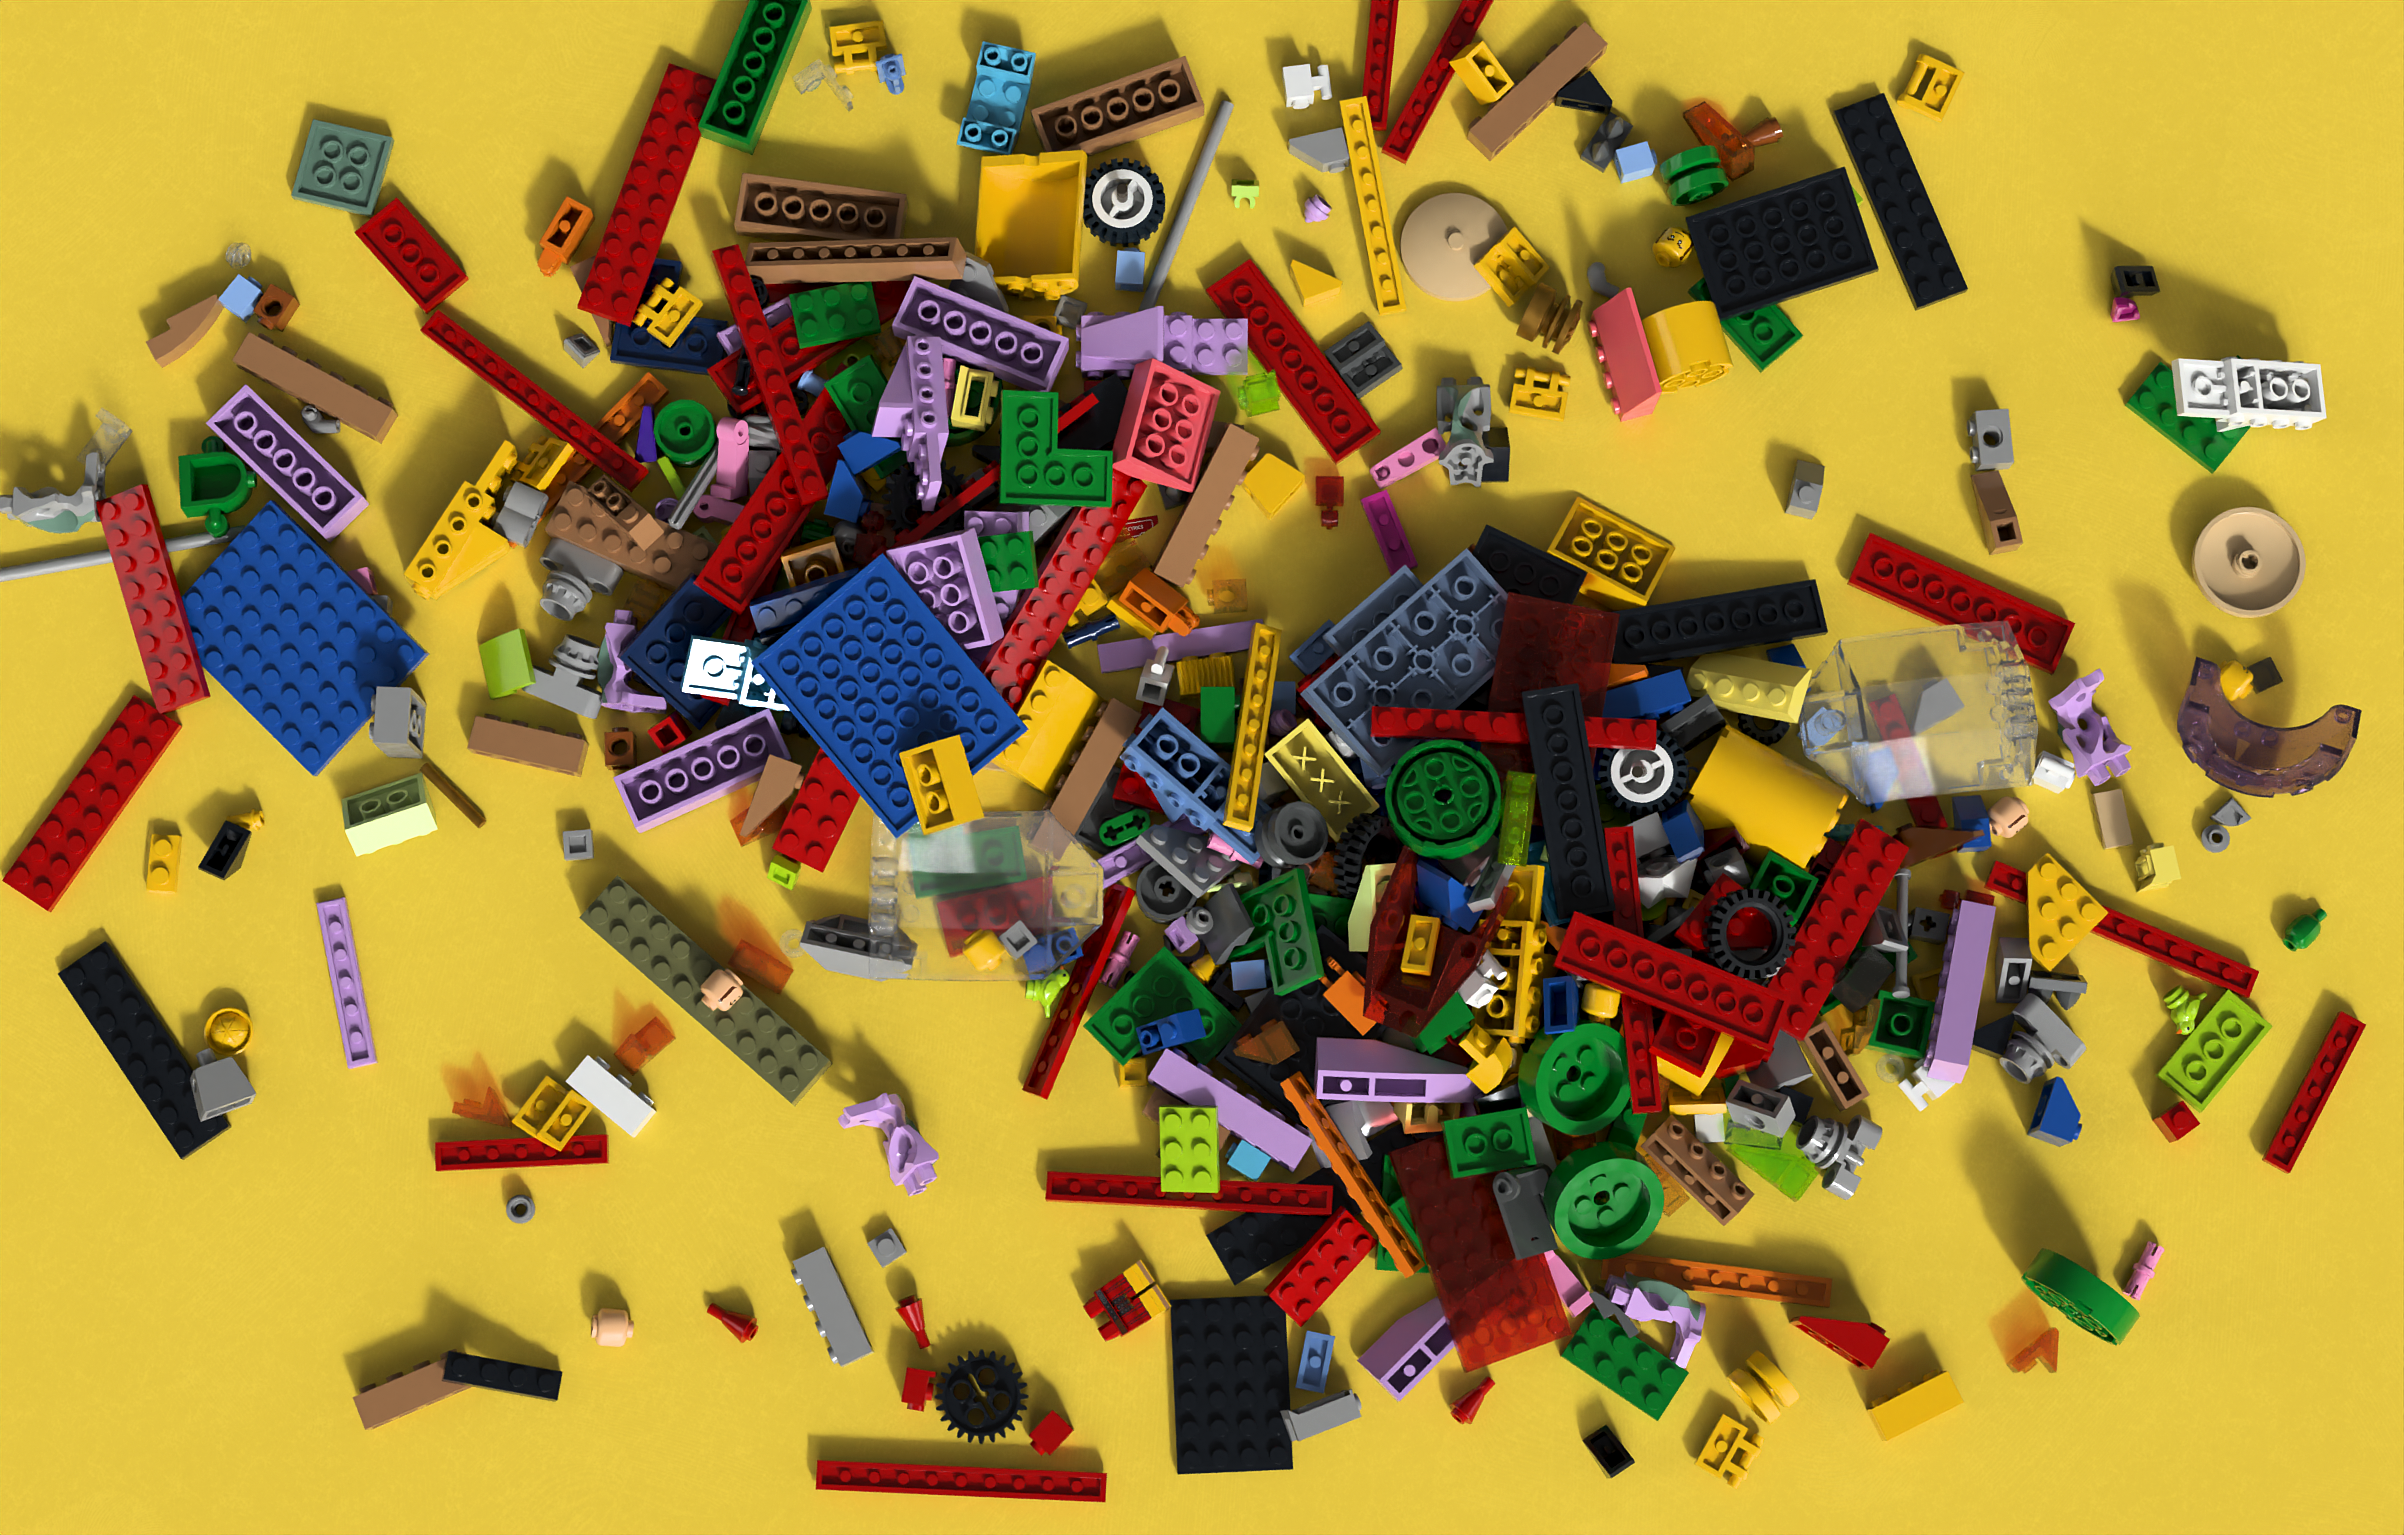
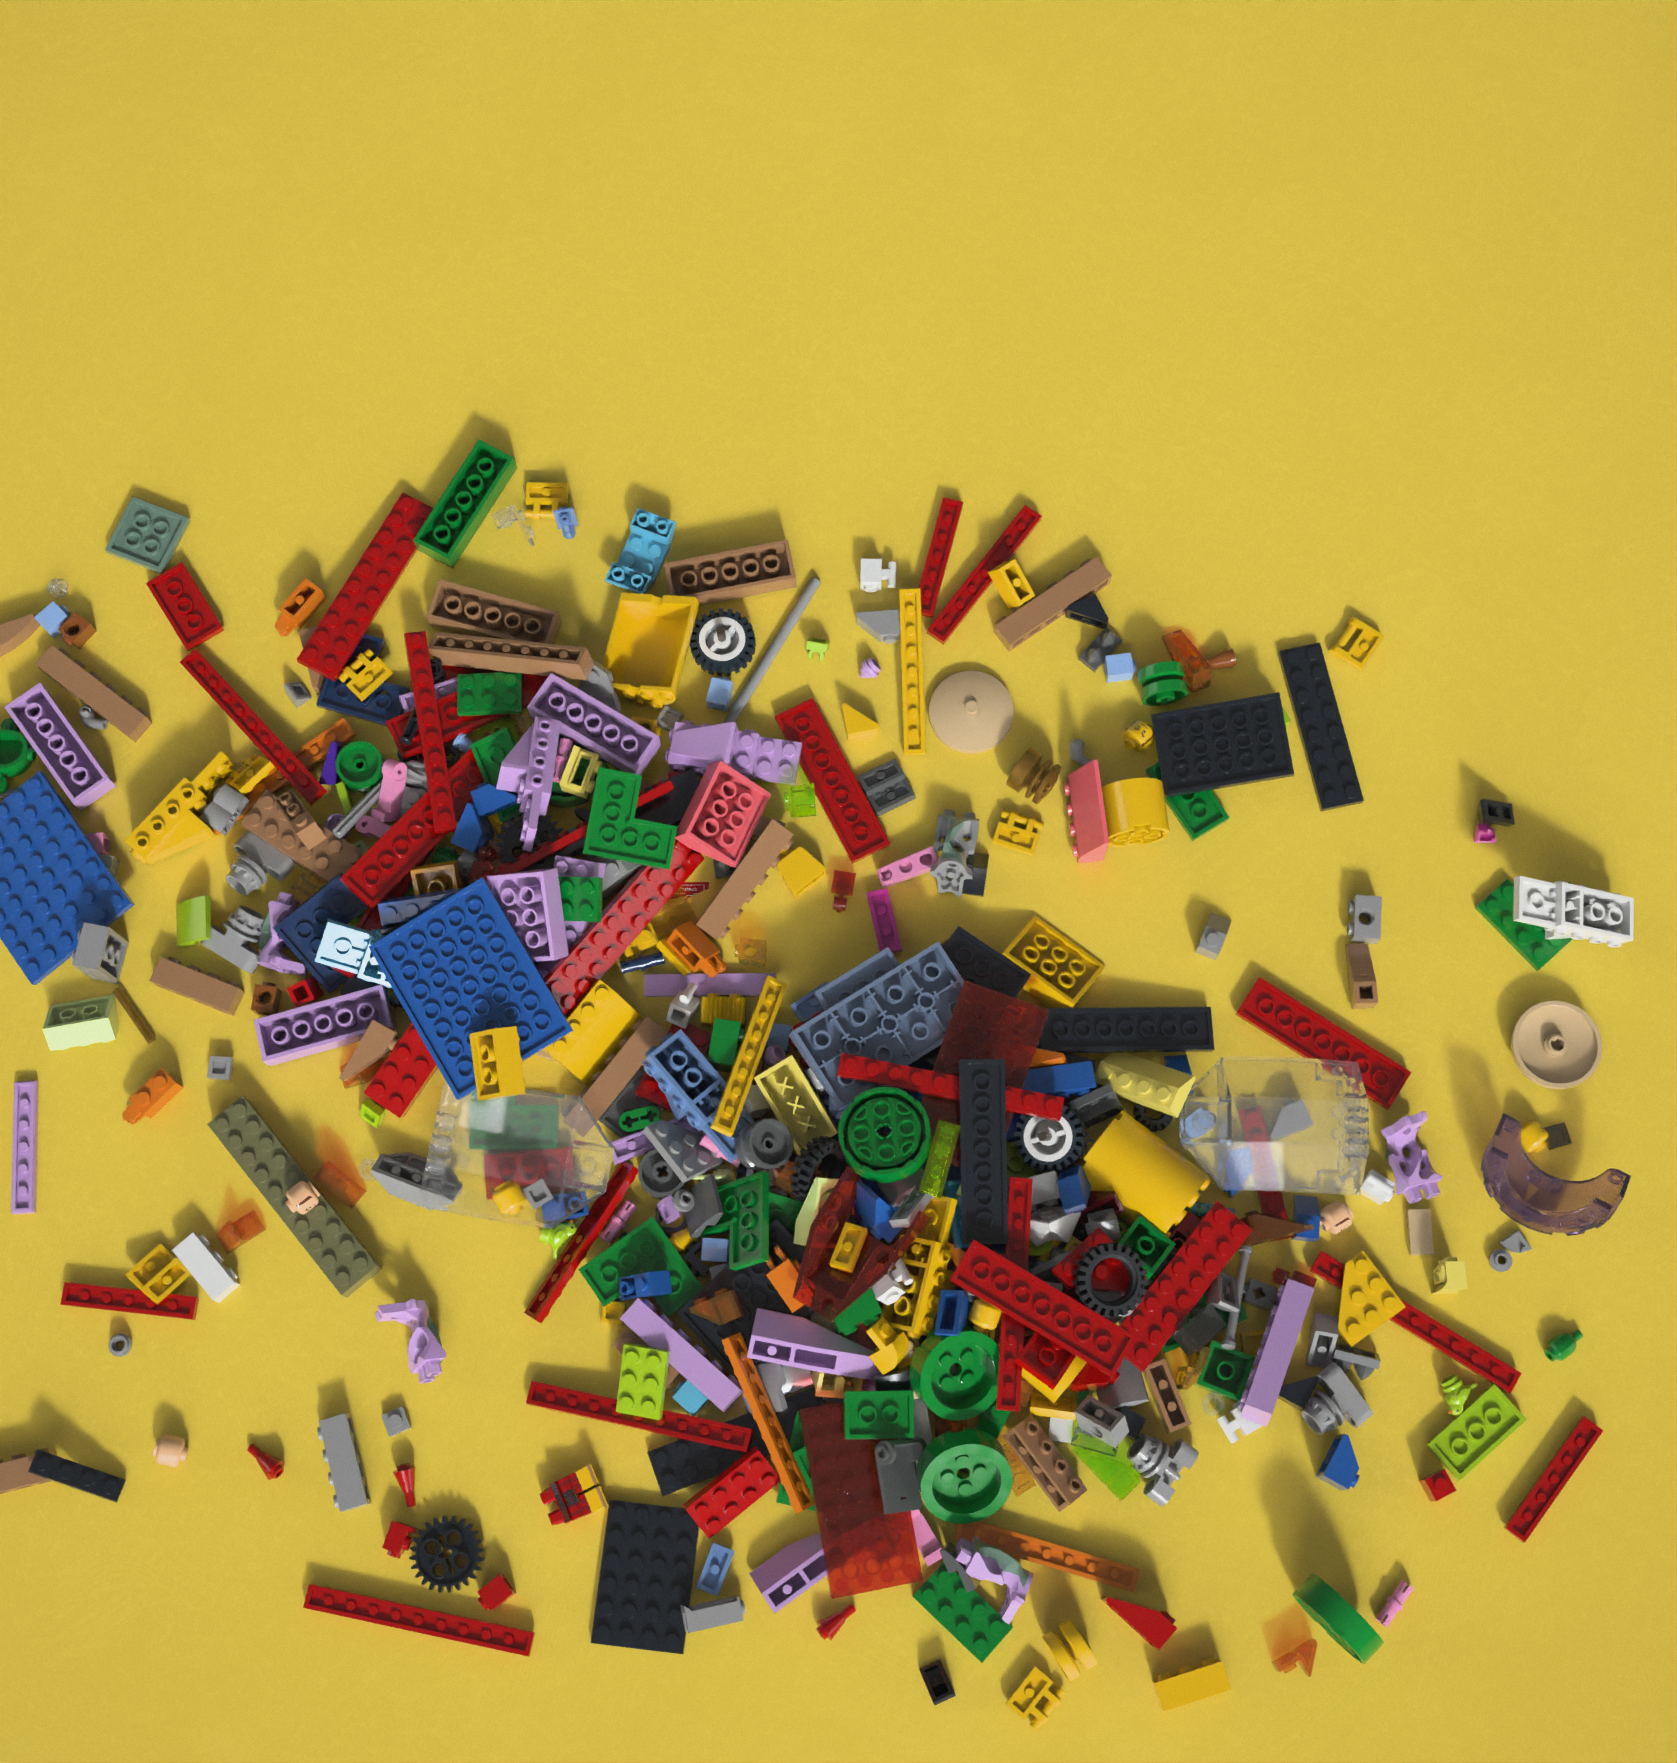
camera: 15 degrees right, 5 degrees down
(492, 1111) = (113, 1263): clear orange slope -> none
(499, 894) = (152, 1097): none -> orange hinge
(1511, 266) = (1011, 732): yellow slope -> none

